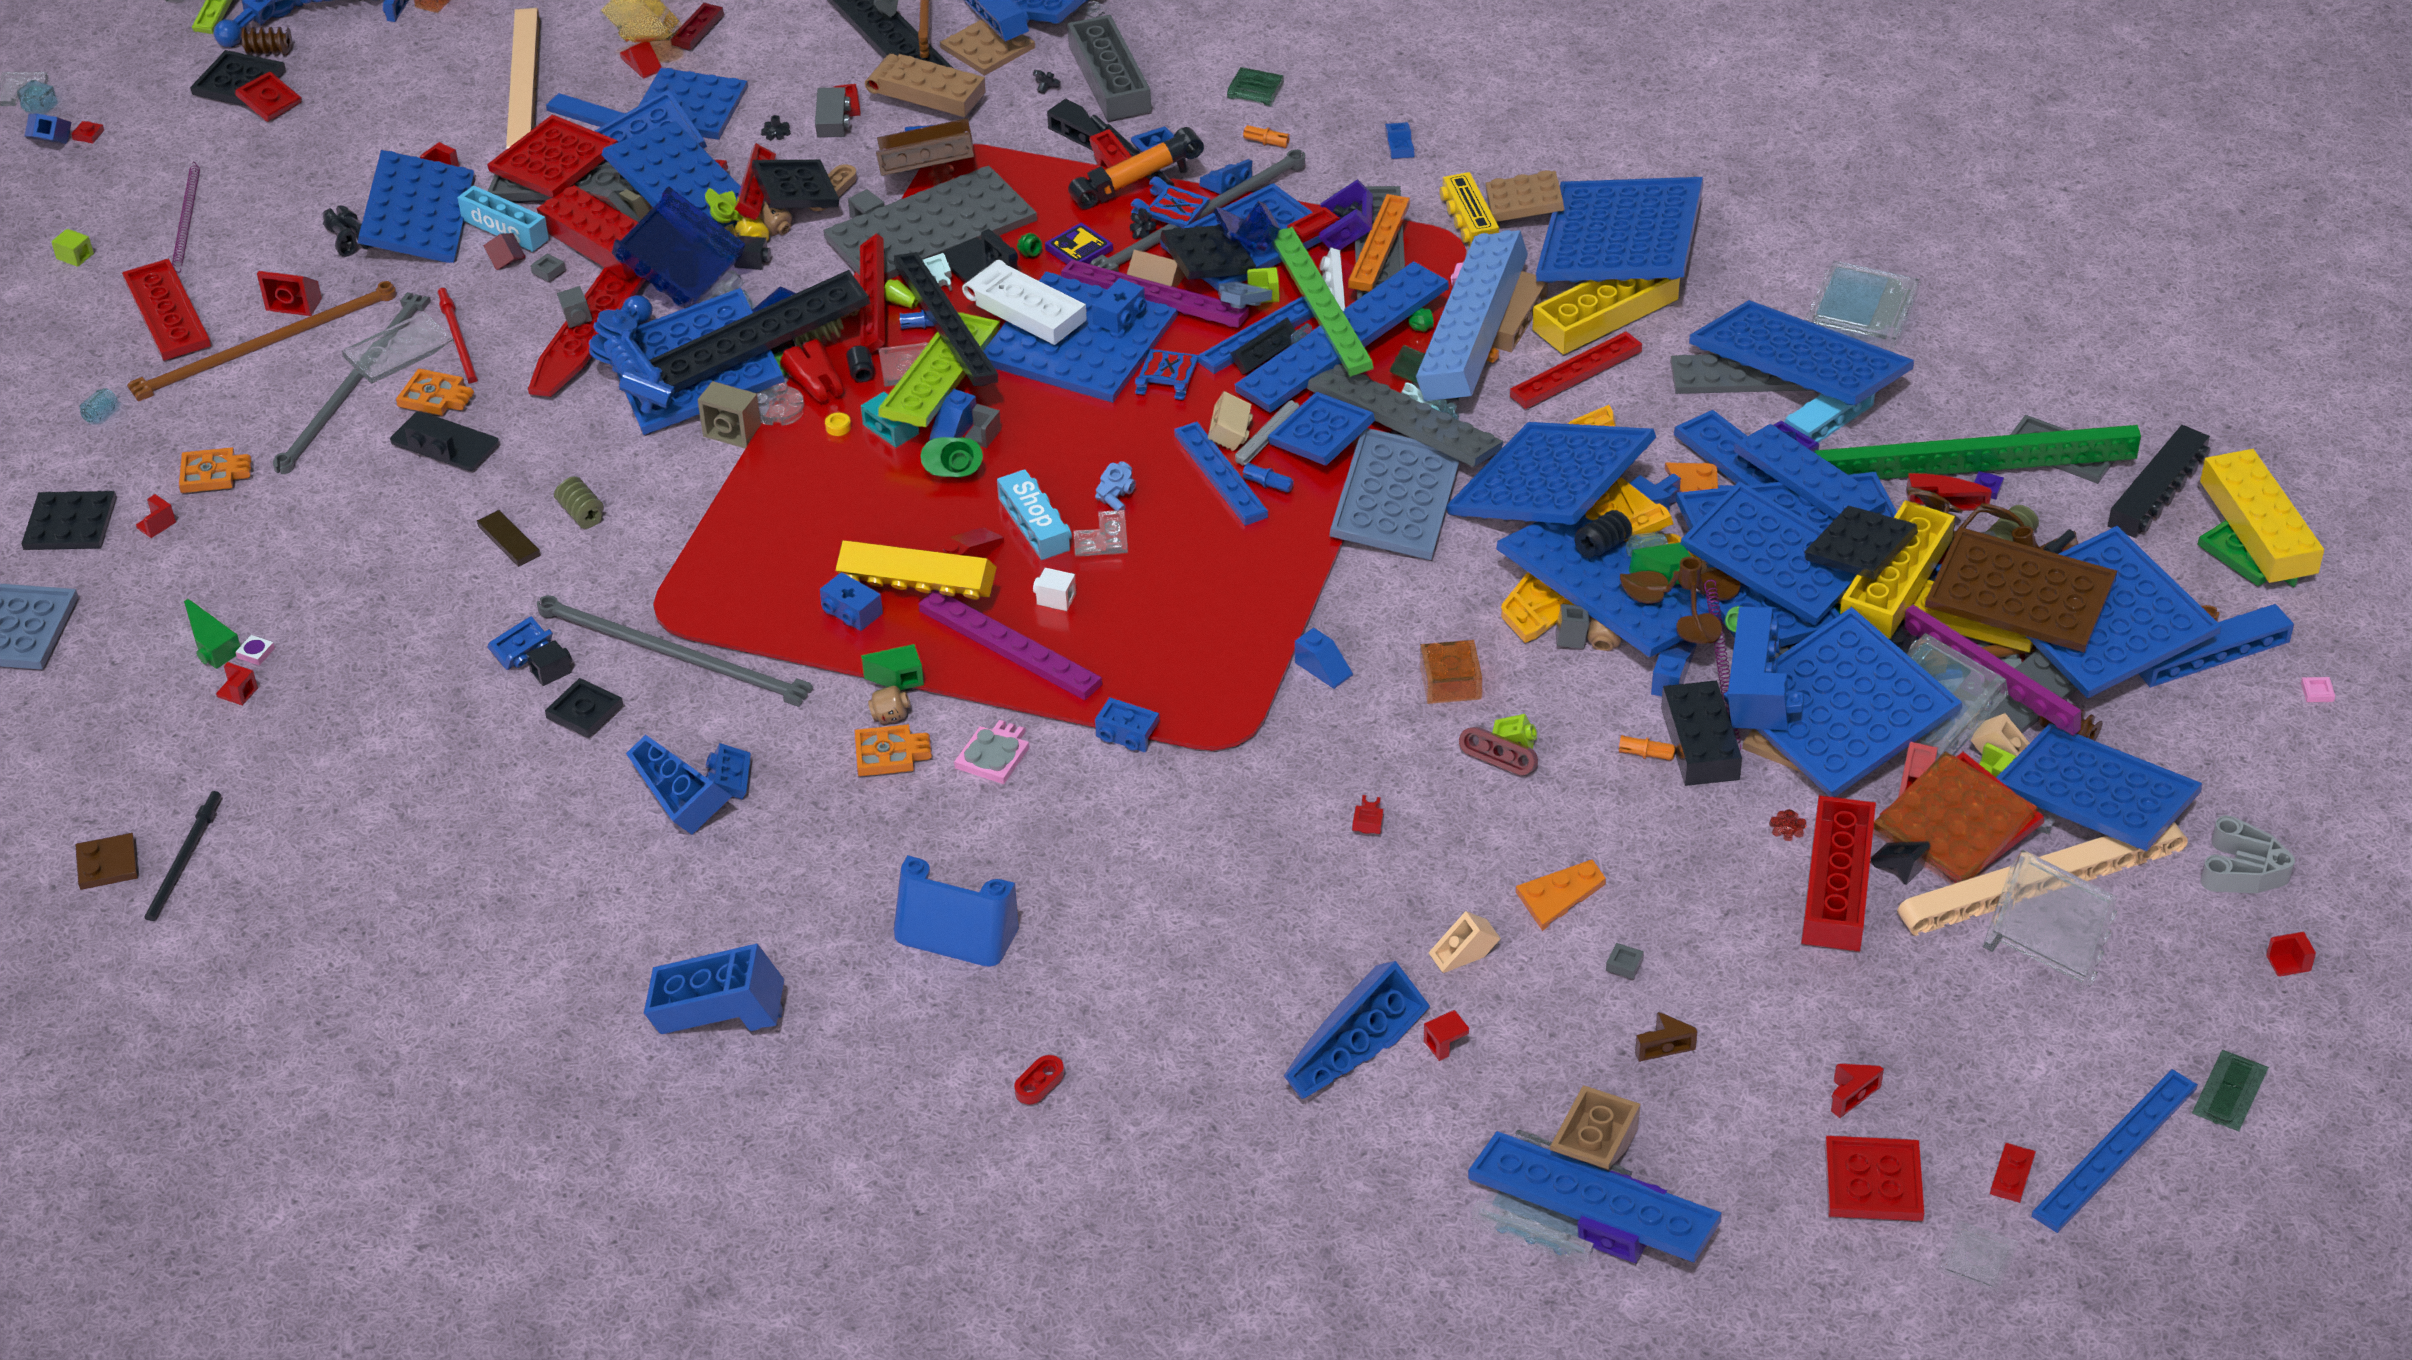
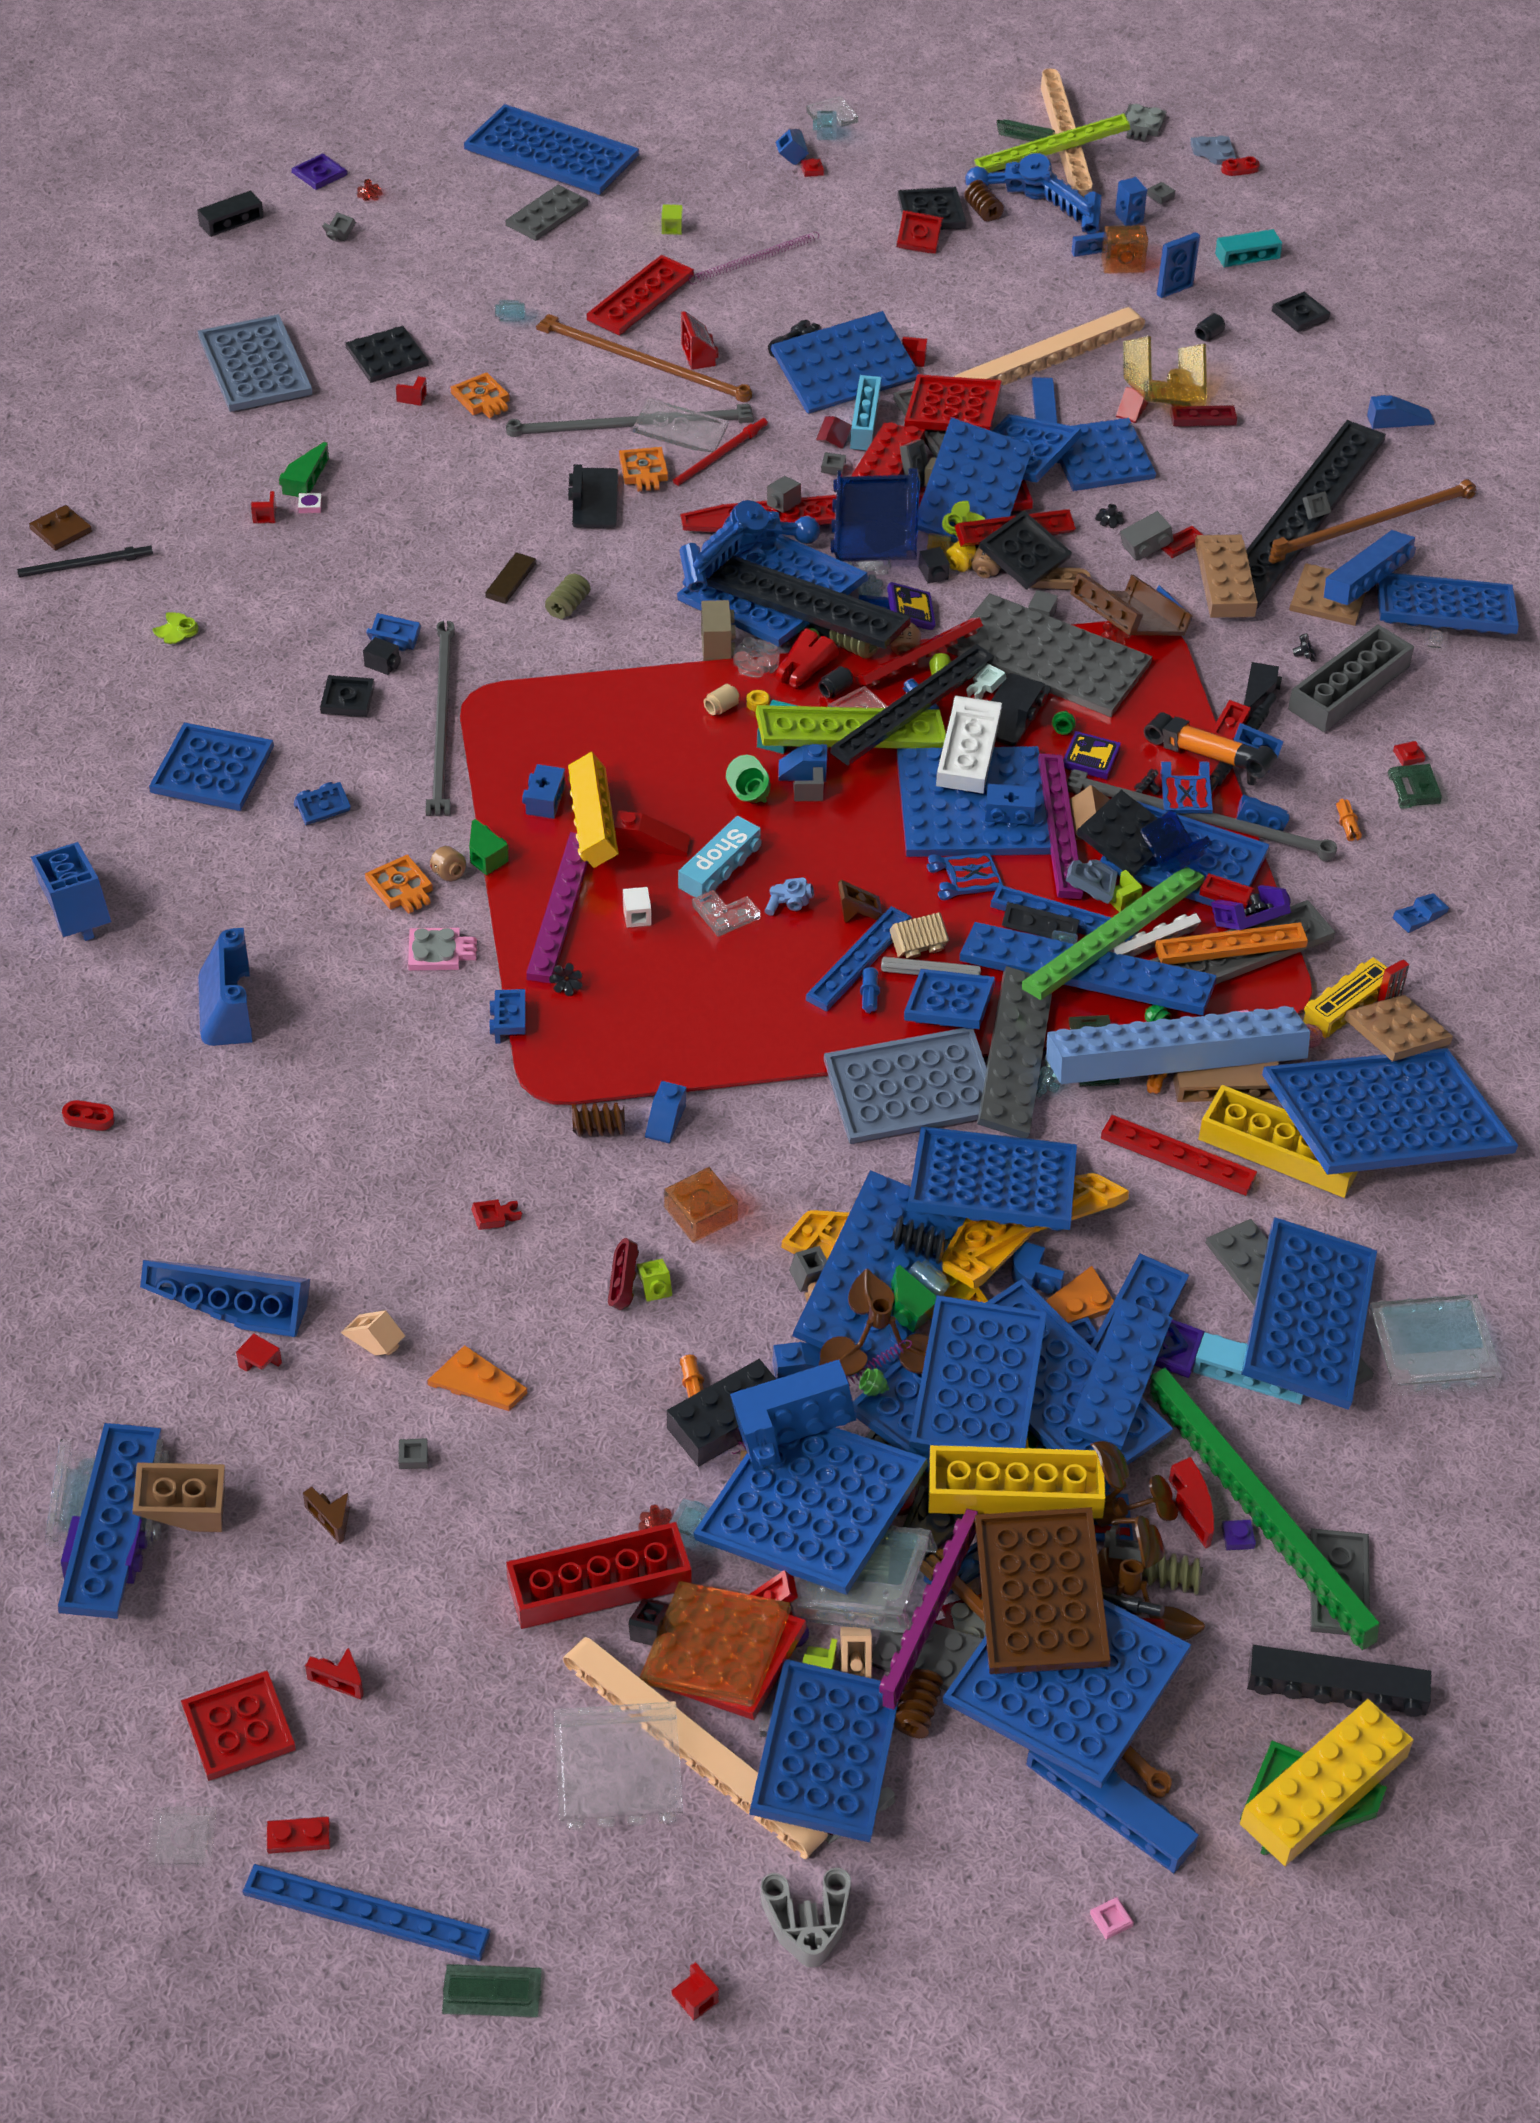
camera: 60 degrees right, 5 degrees up
(360, 811) = (177, 628): none -> lime plate
(603, 842) = (211, 766): none -> blue plate
(679, 788) = (283, 775): blue wedge -> none
(789, 282) = (912, 603): none -> tile
(822, 443) = (721, 699): none -> tan brick
(1113, 666) = (566, 979): none -> black plant
(1158, 448) = (858, 900): none -> reddish brown slope
(1213, 76) = (1409, 753): none -> red plate
(1302, 706) = (598, 1119): none -> reddish brown piece
(1480, 172) = (1393, 980): none -> red tile
(1803, 798) = (688, 1518): none -> clear light blue brick
(1861, 542) = (1017, 1434): black plate -> none

